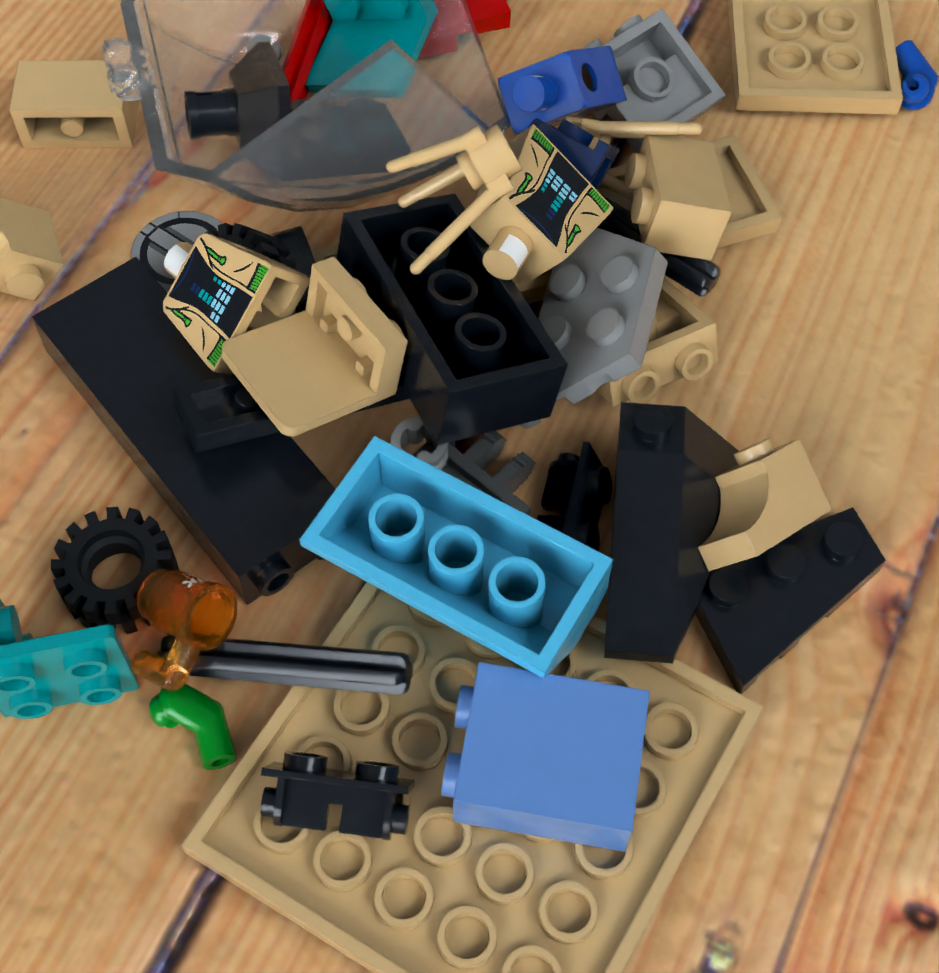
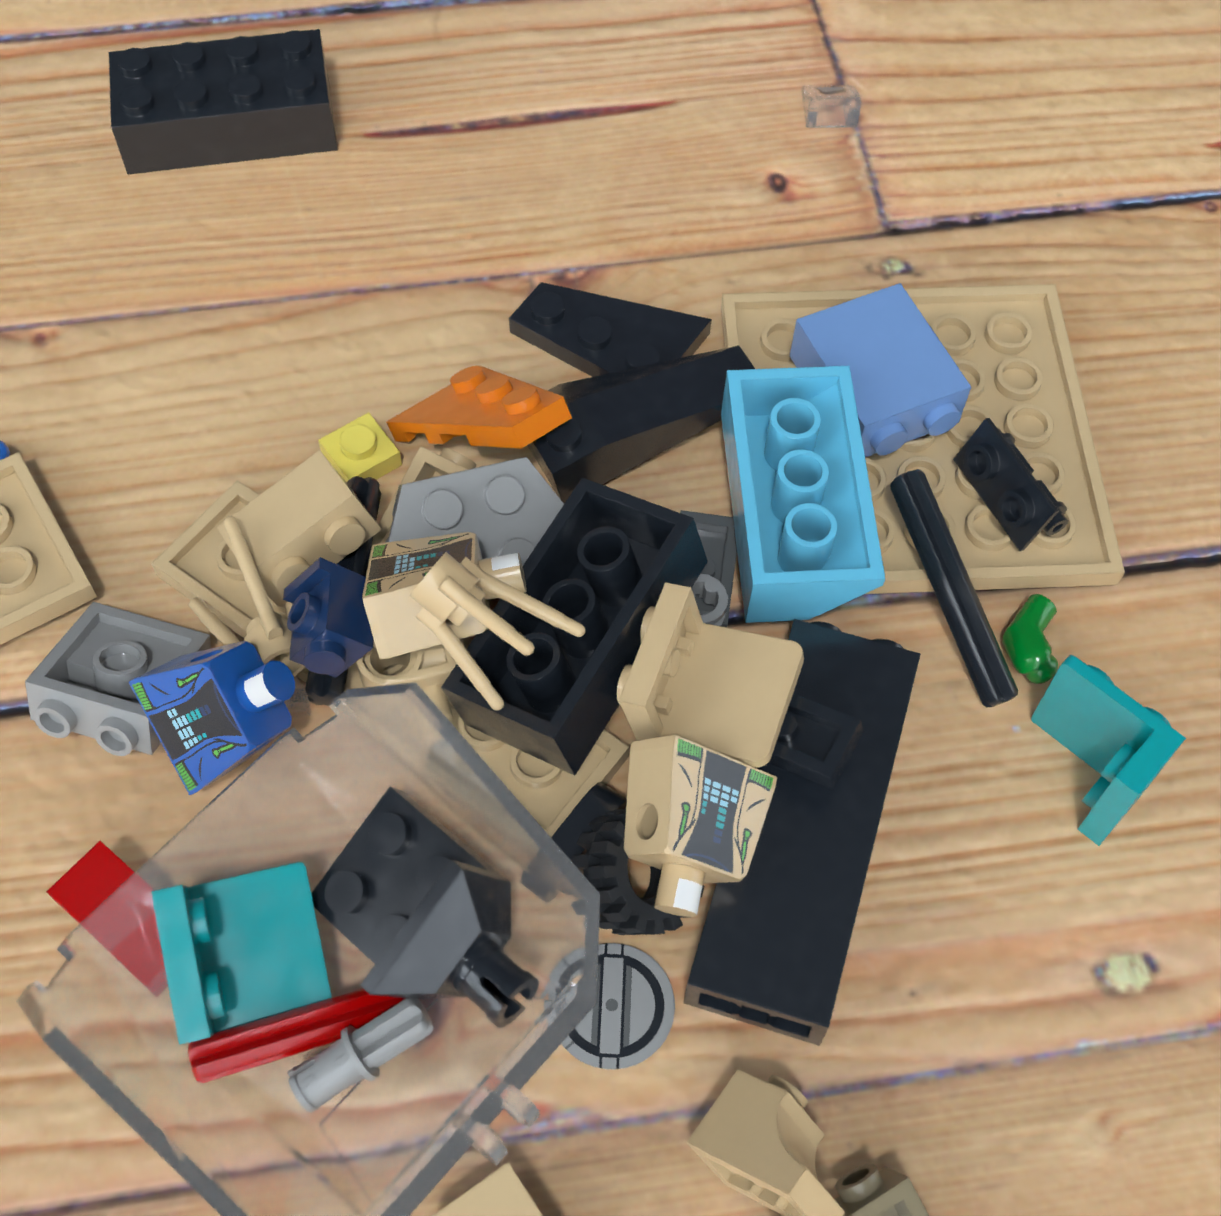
camera: 125 degrees left, 0 degrees up
(92, 546) = (993, 751): black tyre -> none
(192, 612) = (978, 672): clear orange piece -> none
(578, 490) = (678, 480): black hinge -> none
(726, 396) = (486, 409): none -> orange wing
(763, 502) = (575, 347): tan arch -> none
(769, 327) = (360, 449): none -> light yellow plate

